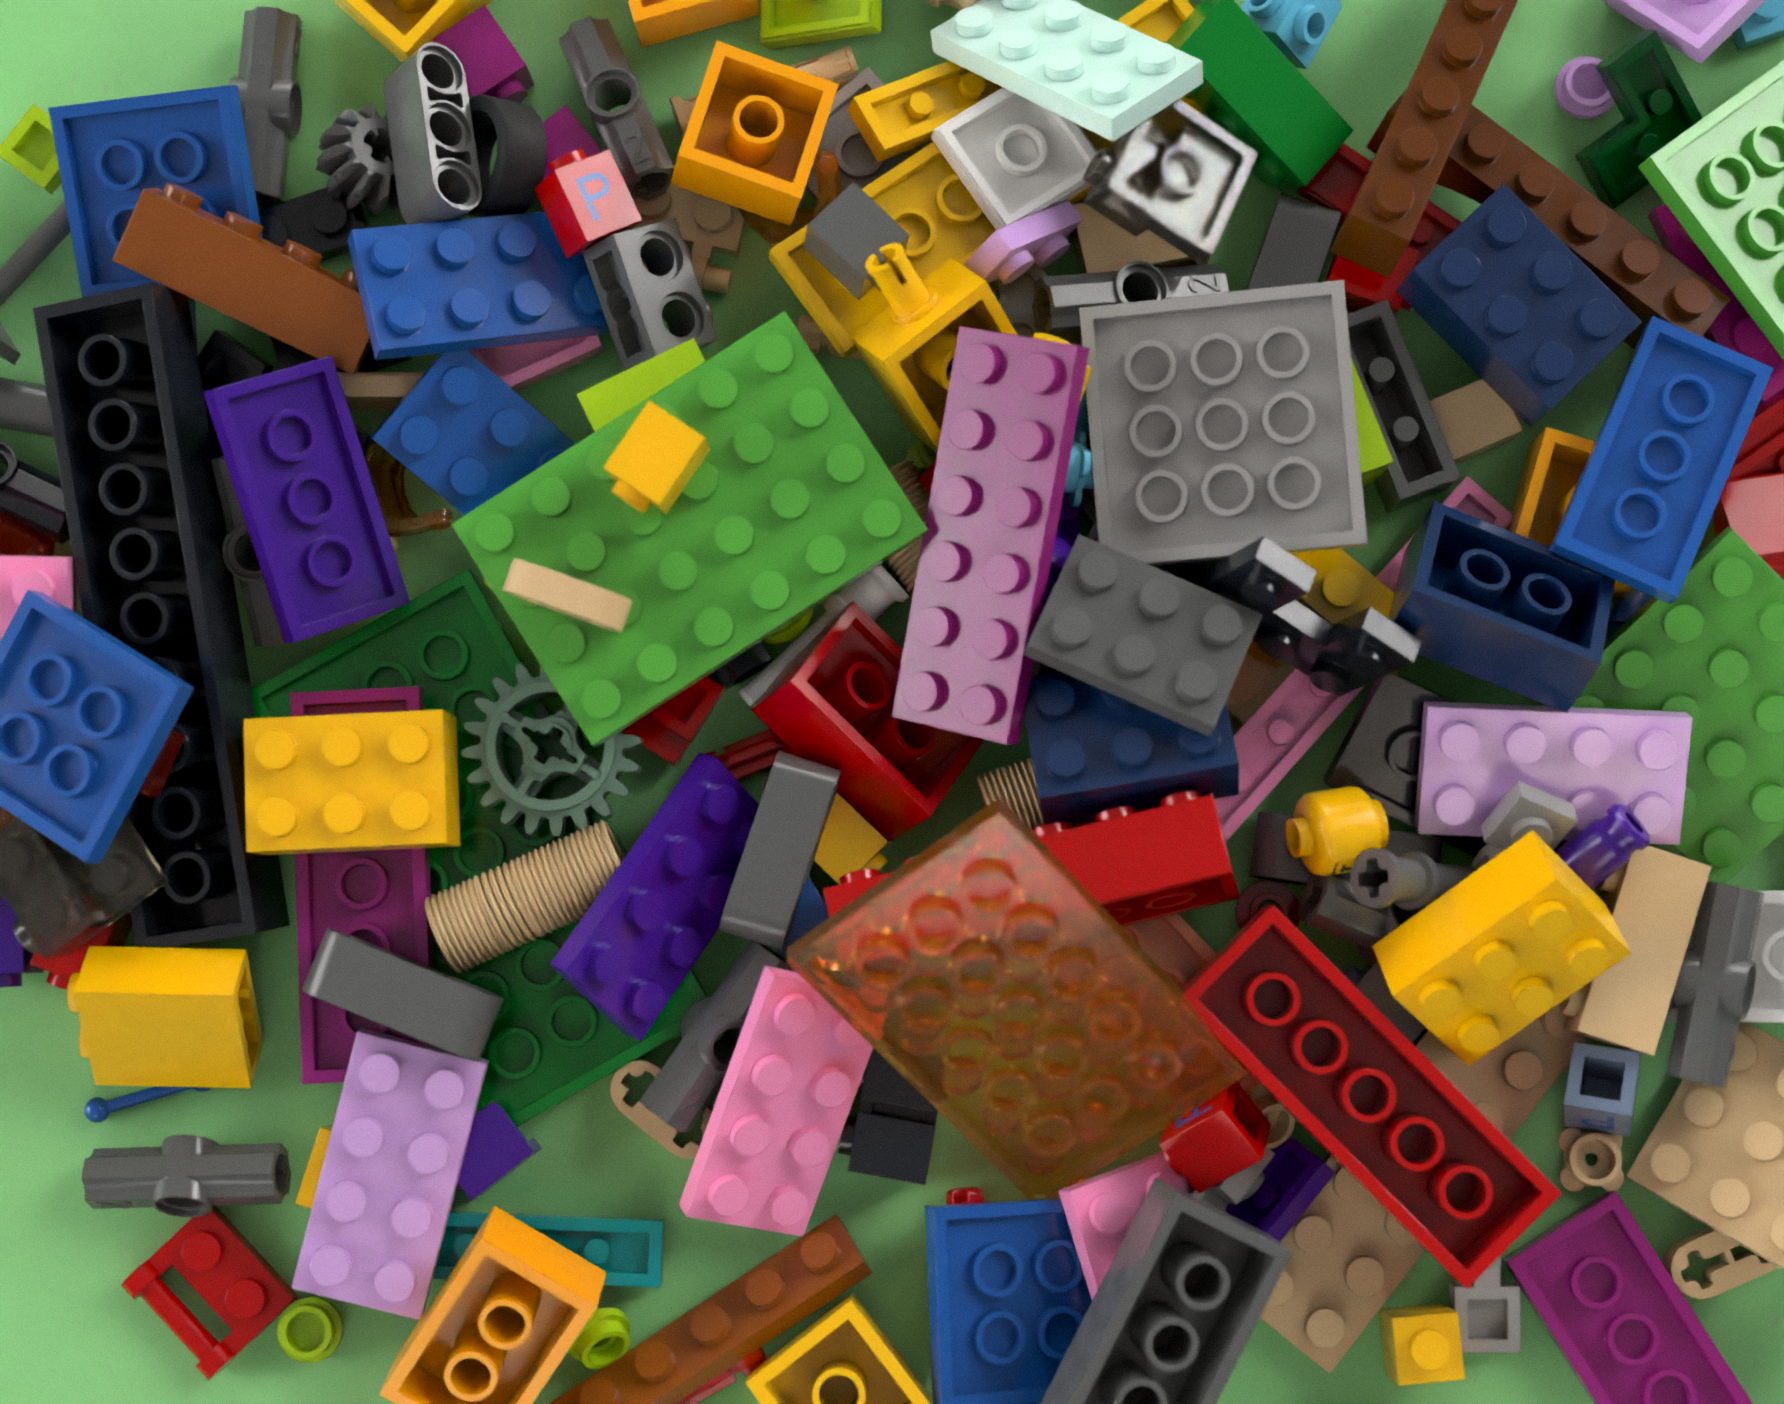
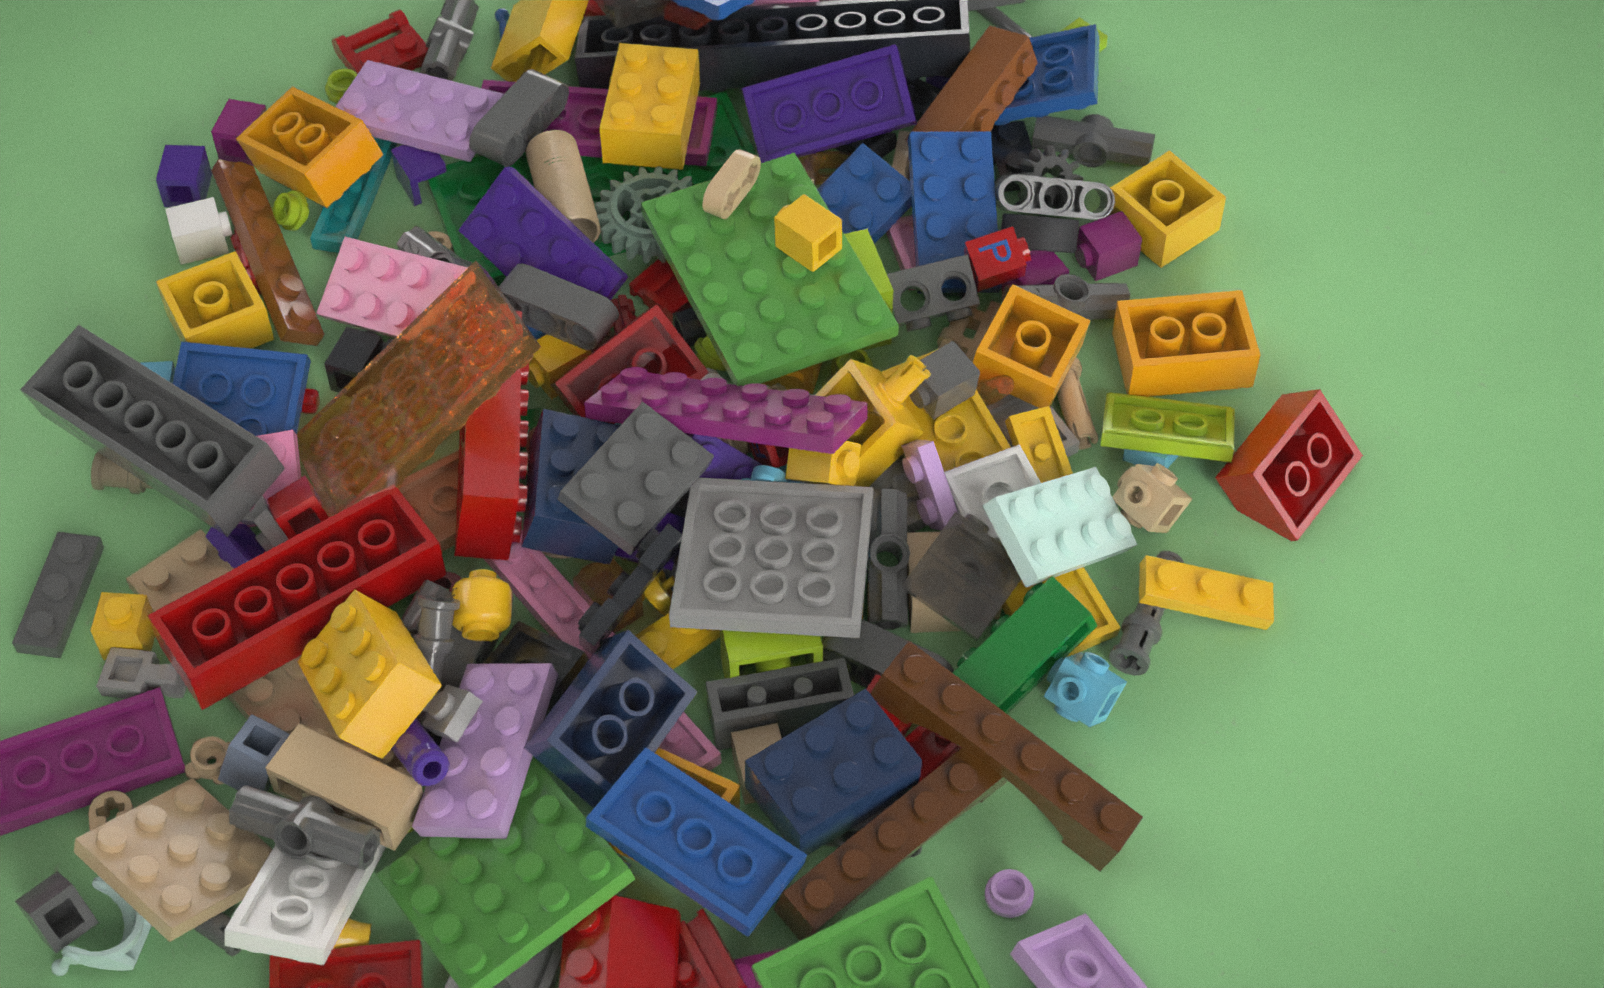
camera: 95 degrees right, 30 degrees down
(1654, 113) = (994, 922): dark green tile -> none

